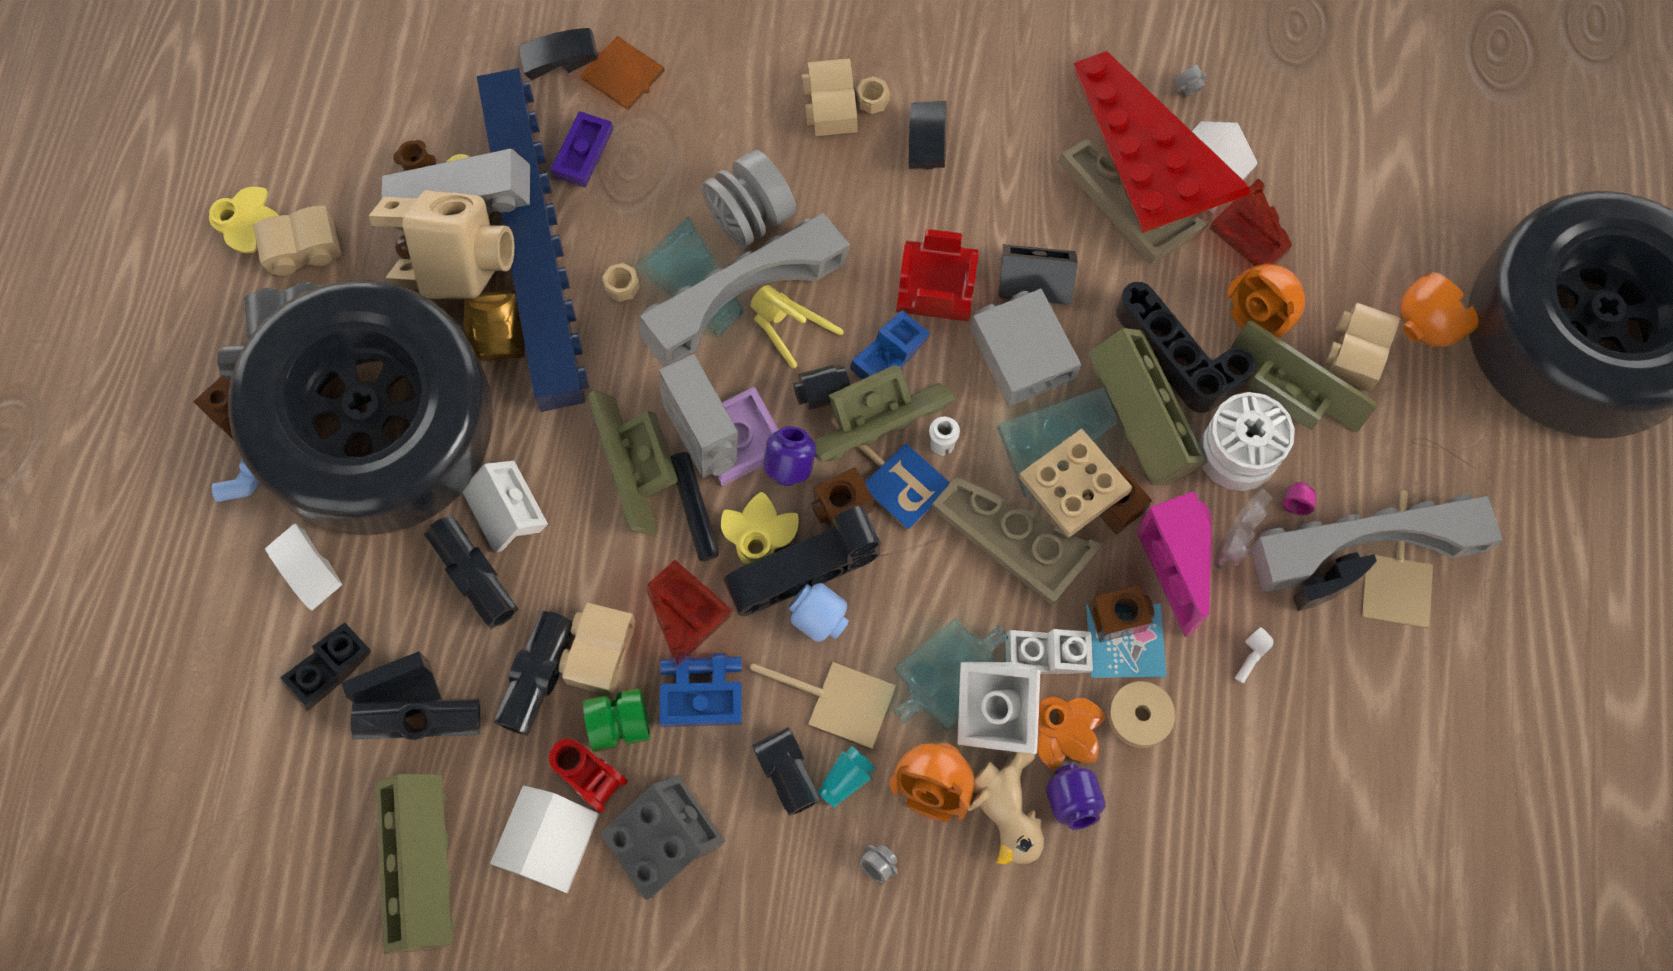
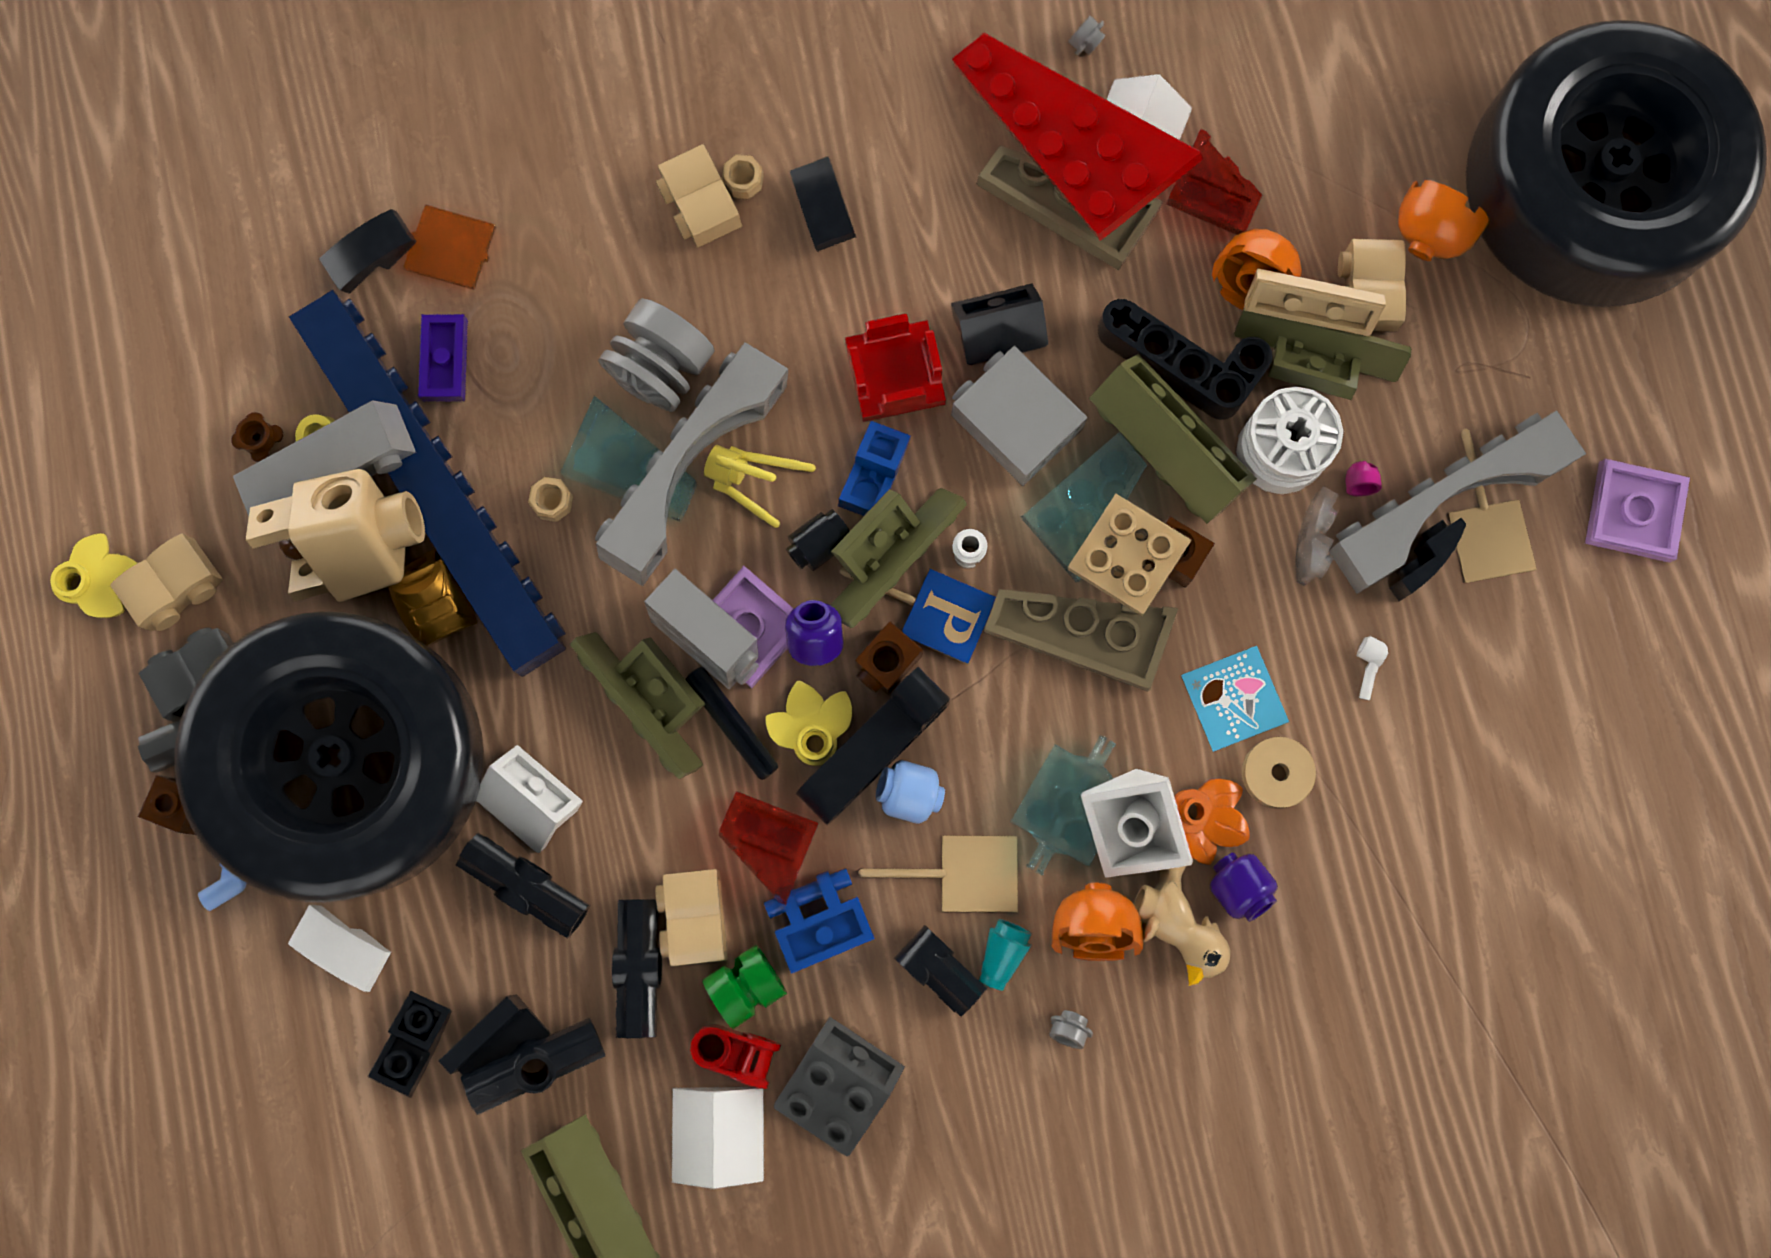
camera: 20 degrees left, 10 degrees up
(1051, 652) = (1162, 741): white slope -> none
(1106, 621) = (1204, 678): reddish brown brick -> none
(1179, 549) = (1265, 591): dark pink slope -> none
(1305, 337) = (1314, 302): none -> tan tile
(1536, 609) = (1637, 510): none -> lavender tile

